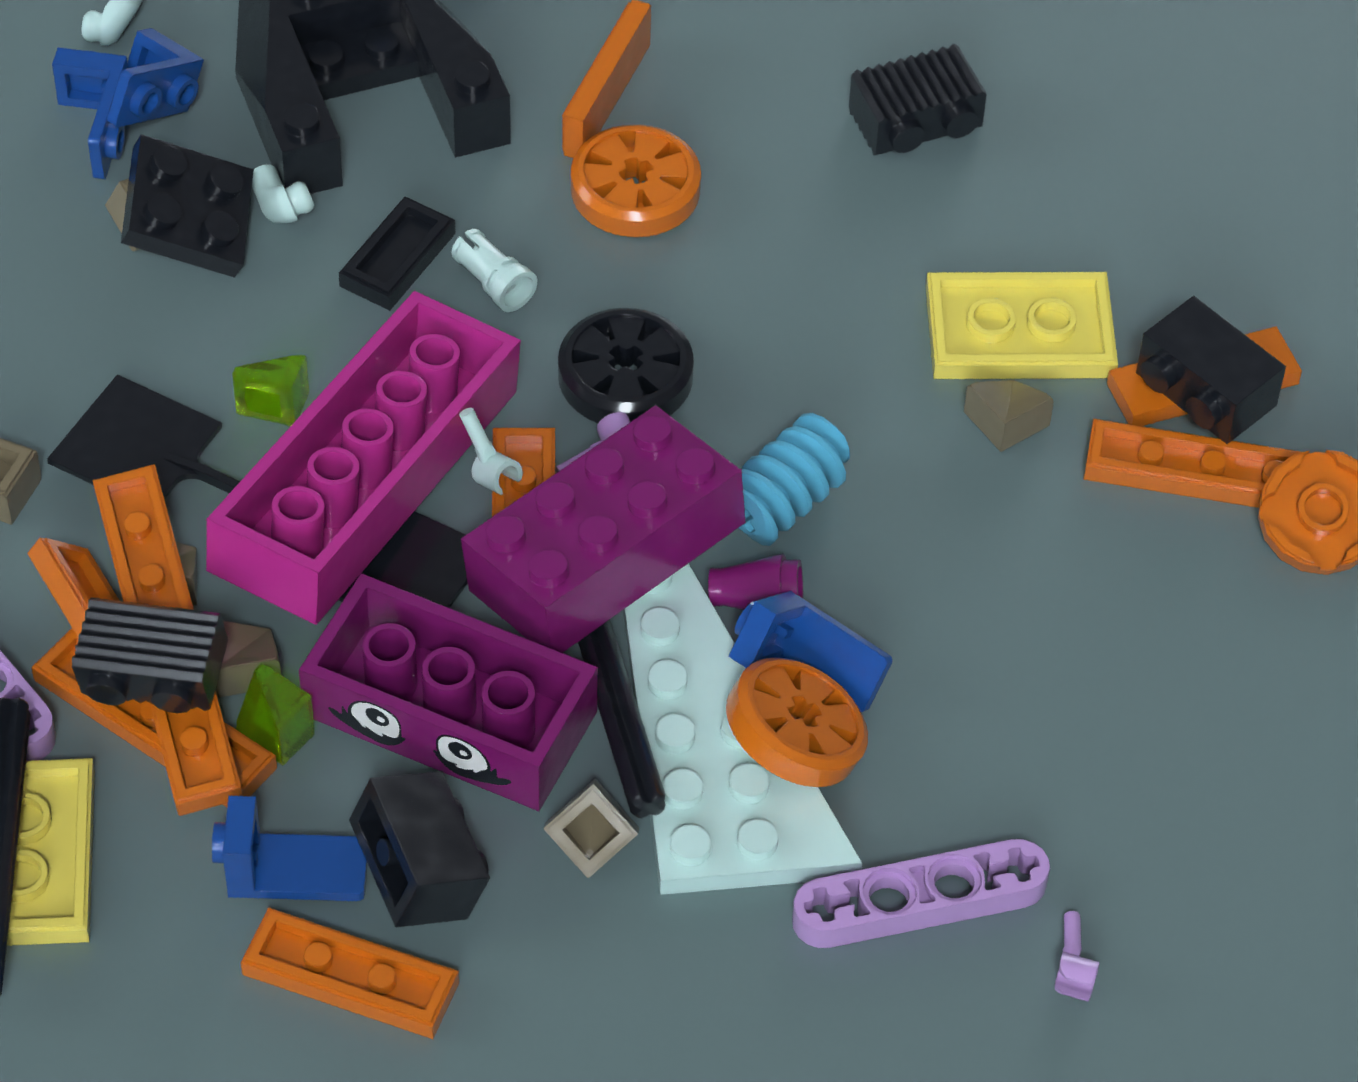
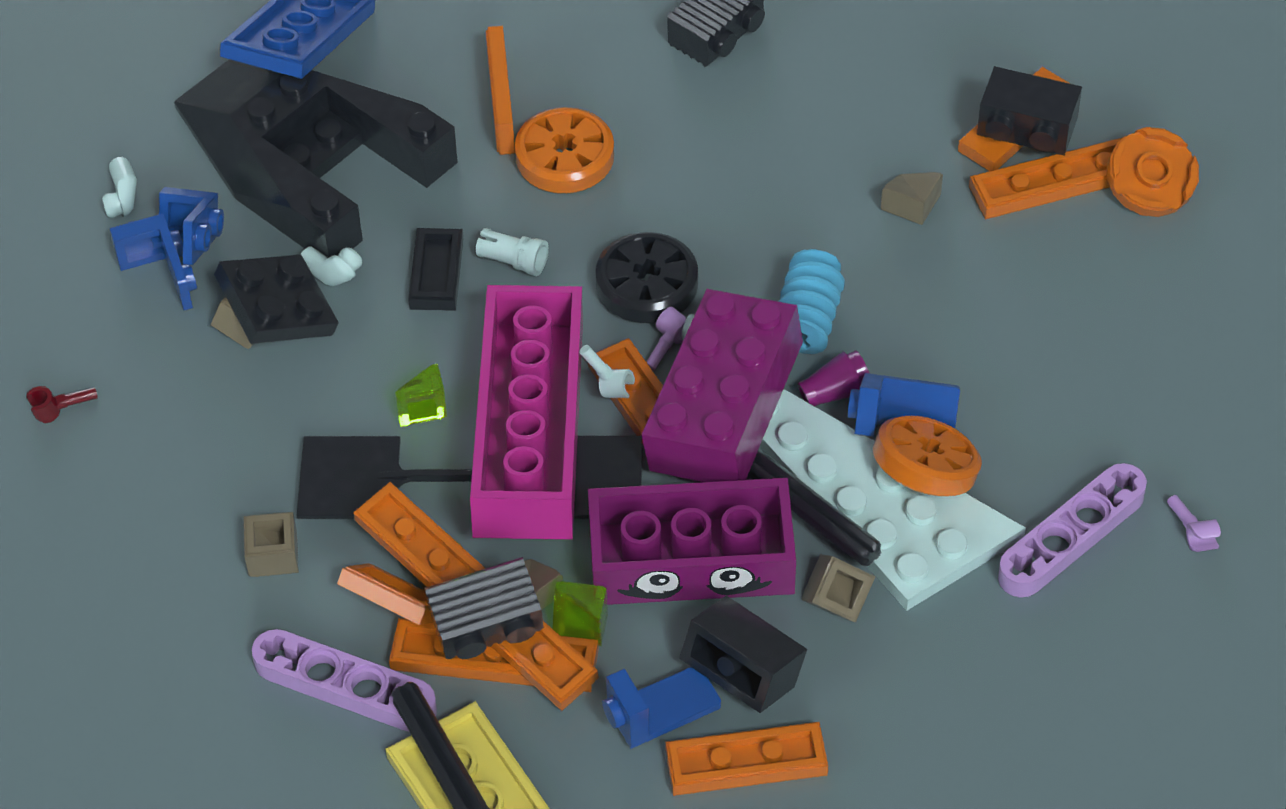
camera: 25 degrees left, 0 degrees up
(1020, 325) = (879, 137): light yellow tile -> none

